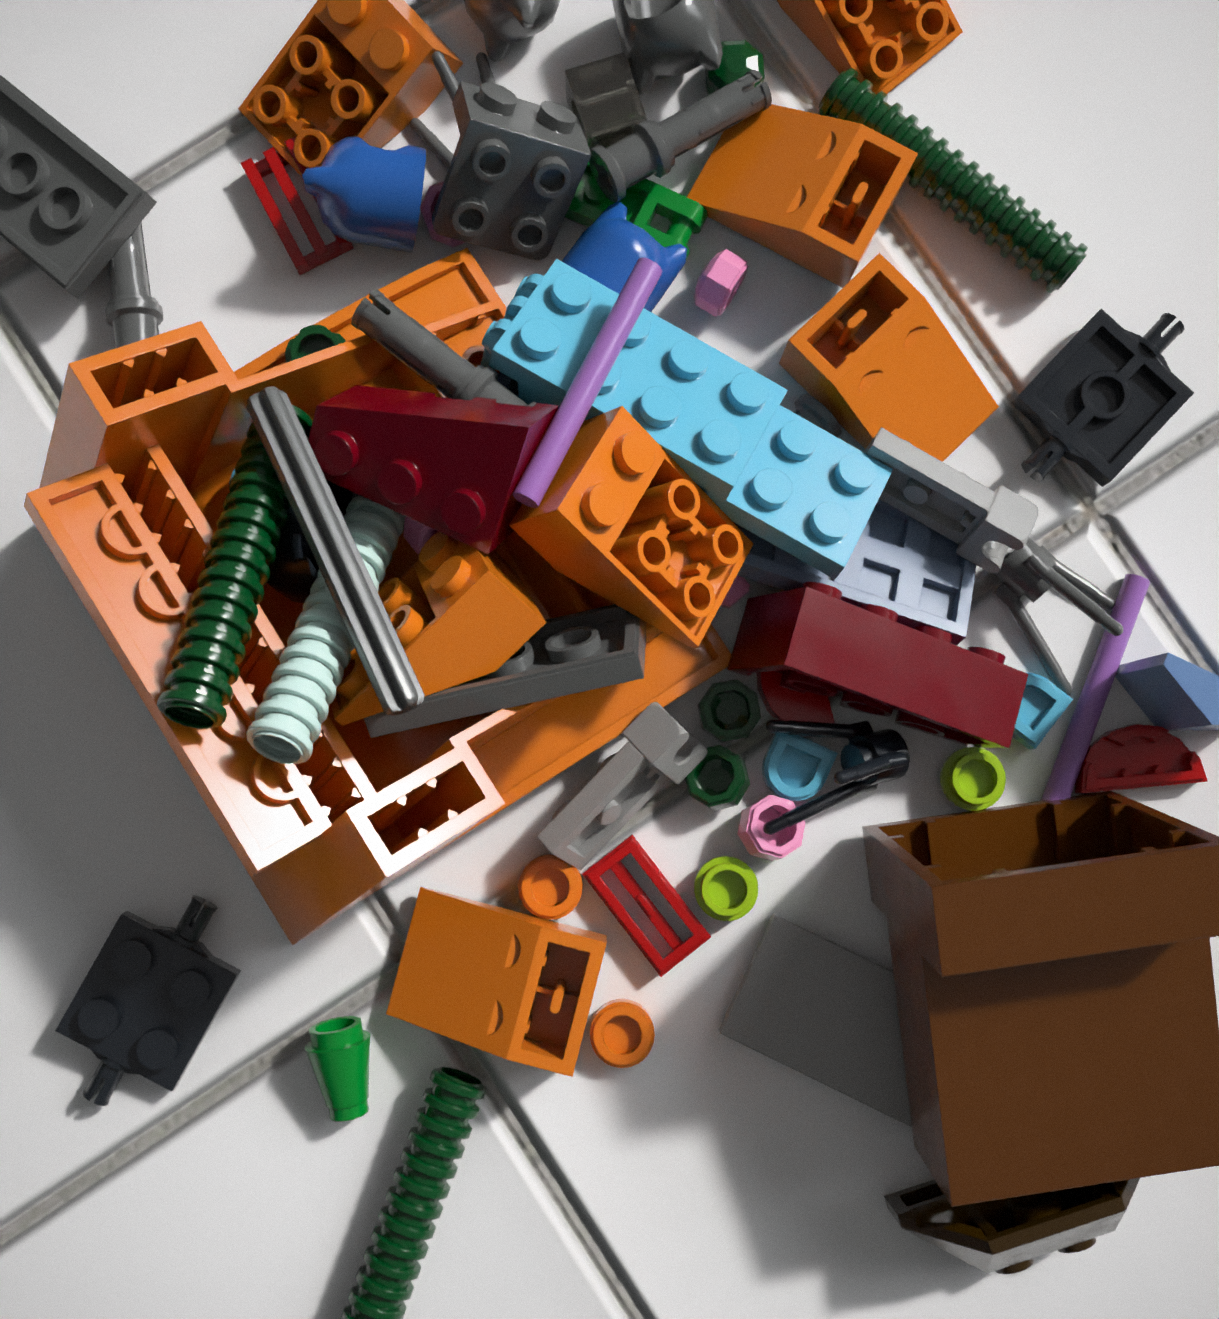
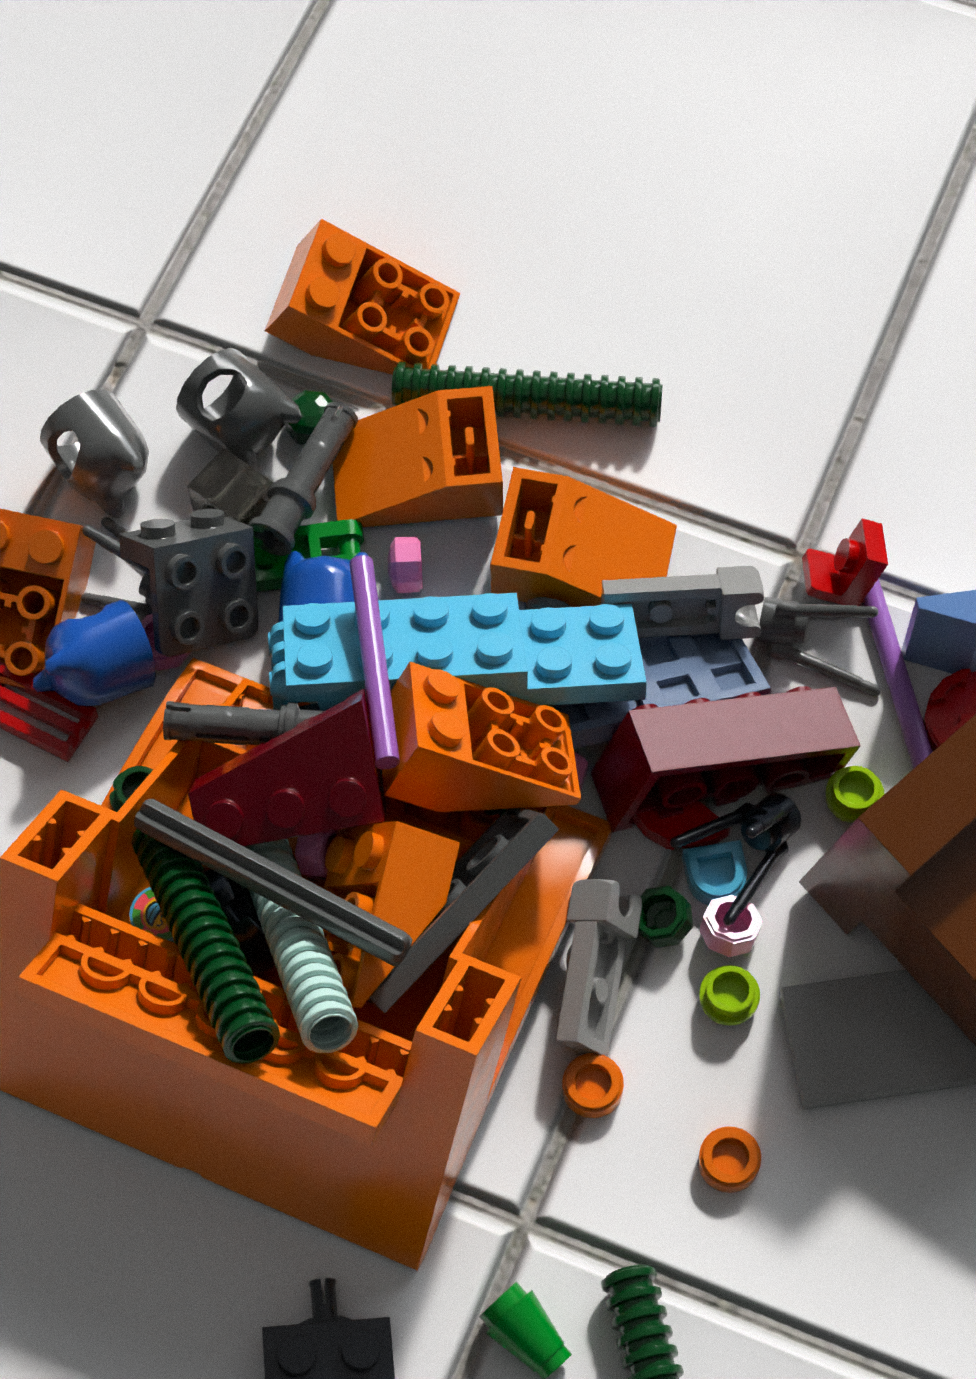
camera: 30 degrees left, 20 degrees down
(498, 980) = (603, 1171): orange slope -> none
(680, 948) = (671, 1071): red tile -> none
(729, 710) = (636, 862): dark green tile -> none
(1039, 710) = (866, 715): medium azure tile -> none
(1102, 397) = (746, 473): black plate -> none
(1129, 564) = (852, 570): none -> red bracket

